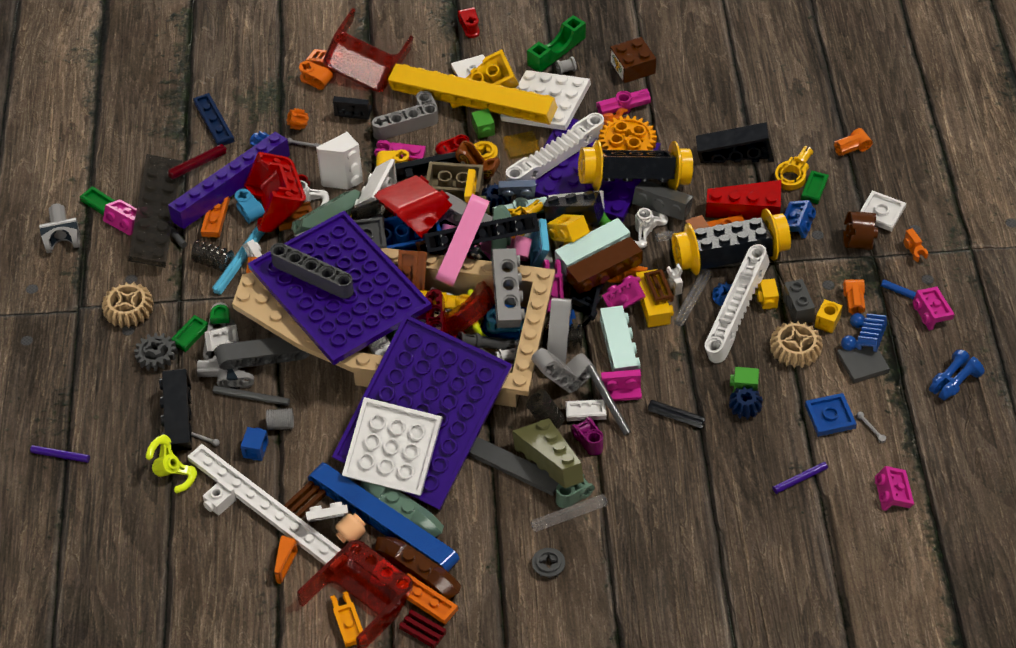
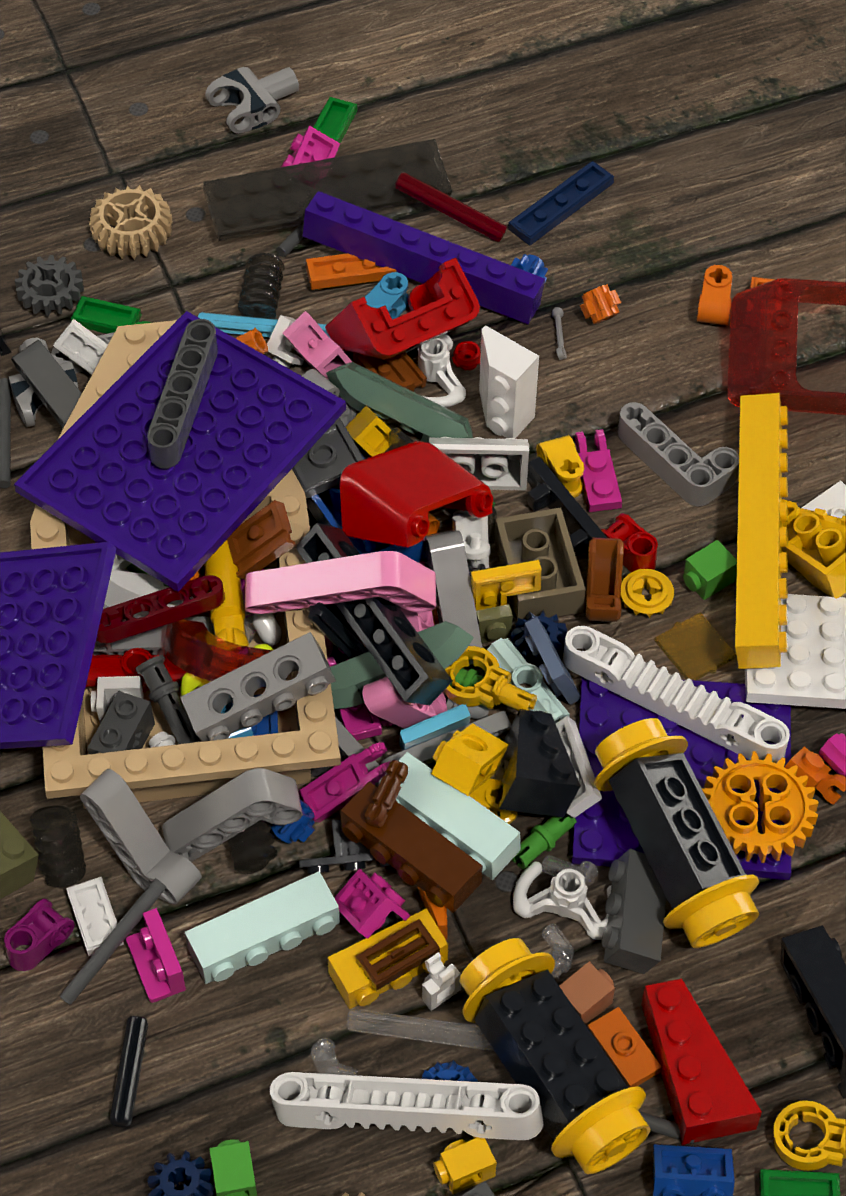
camera: 70 degrees right, 5 degrees up
(269, 237) = (315, 345): none -> bright pink brick
(351, 107) = (661, 370): black bracket -> none
(579, 260) = (386, 793): none -> reddish brown axle
(630, 220) = (553, 865): none -> clear arm
(697, 335) = (326, 1059): none -> clear arm

